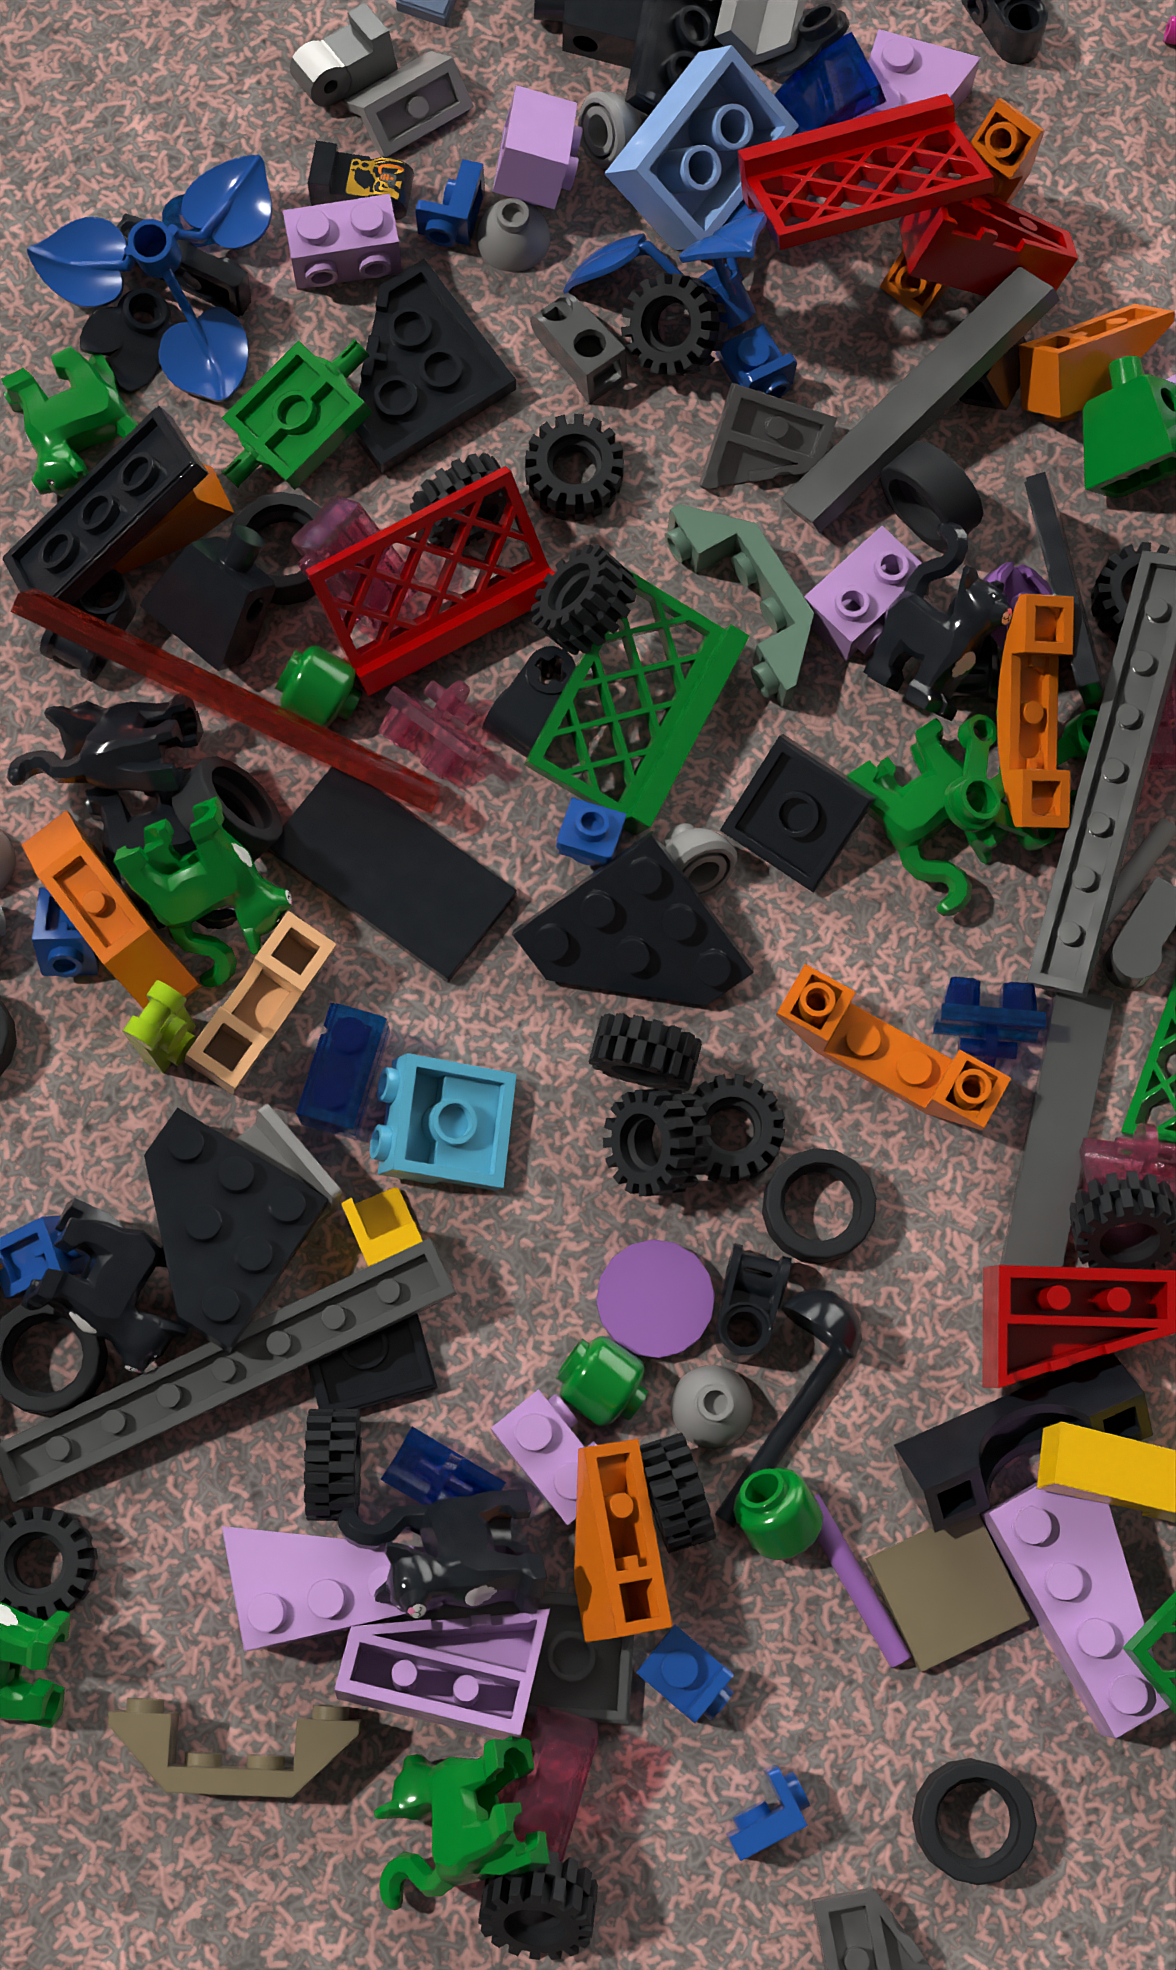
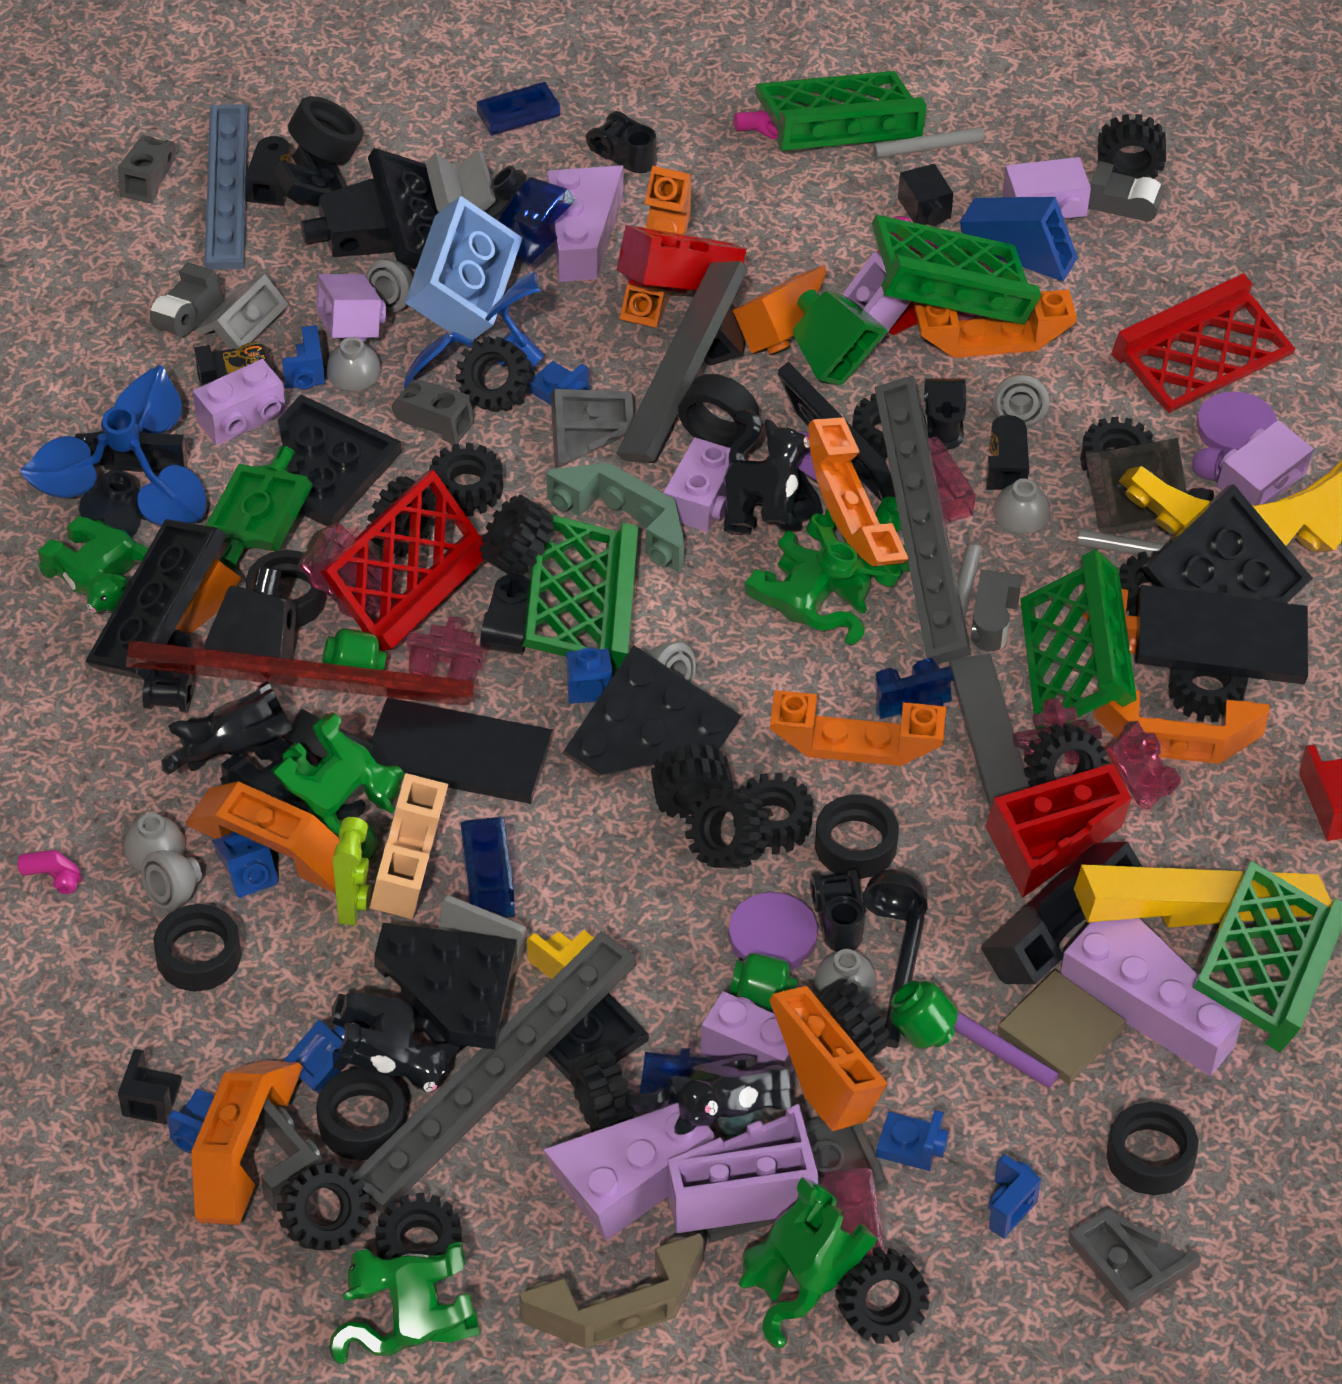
camera: 20 degrees left, 25 degrees down
(444, 1122) = (572, 875): medium azure plate -> none
(798, 813) = (724, 617): black tile -> none
(866, 148) = (581, 236): red fence -> none

